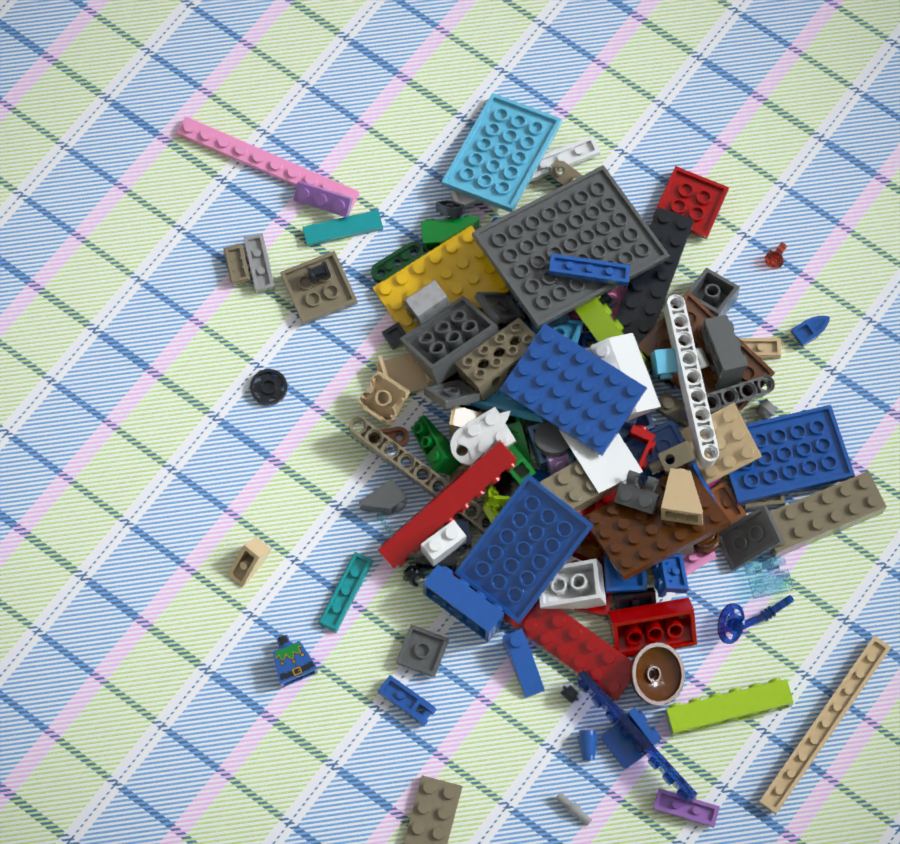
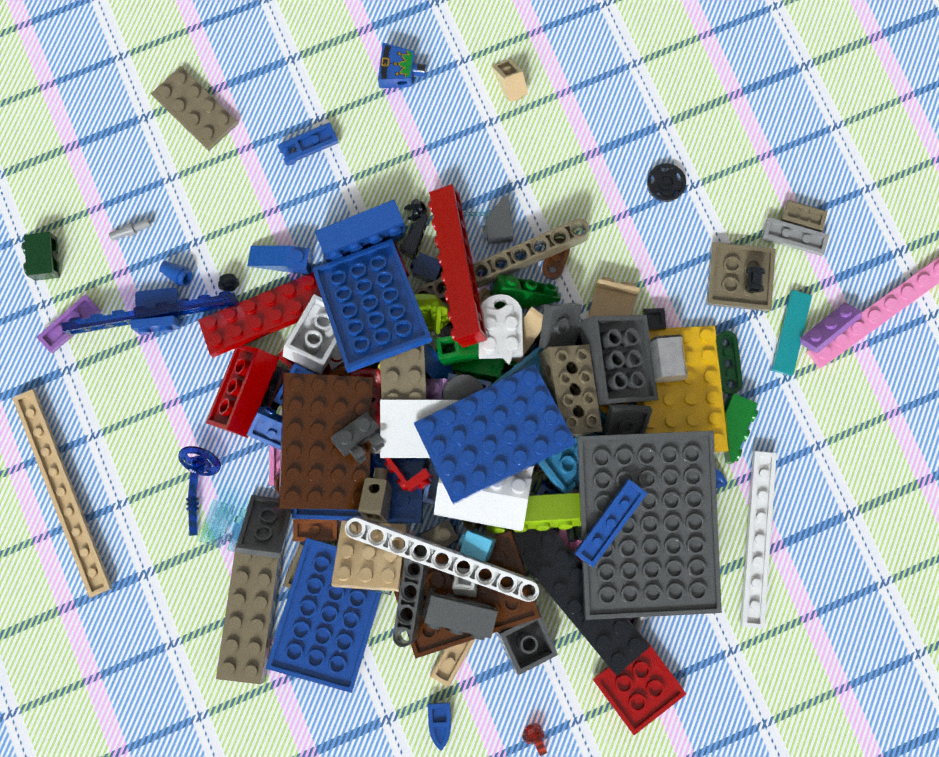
camera: 120 degrees right, 10 degrees up
(345, 592) = (436, 147): teal tile -> none
(384, 398) = (595, 268): tan slope -> none
(422, 651) = (343, 180): dark grey plate -> none
(443, 543) = (422, 241): white brick -> none
(450, 208) = (757, 440): black plate -> none
(502, 152) = (792, 526): medium azure plate -> none
(568, 172) = (732, 577): dark tan plate -> none
(666, 674) = (187, 369): reddish brown dish -> none
(681, 499) = (329, 473): tan slope -> none
(728, 707) = (129, 414): lime brick -> none
(766, 409) = (384, 626): light grey plate -> none

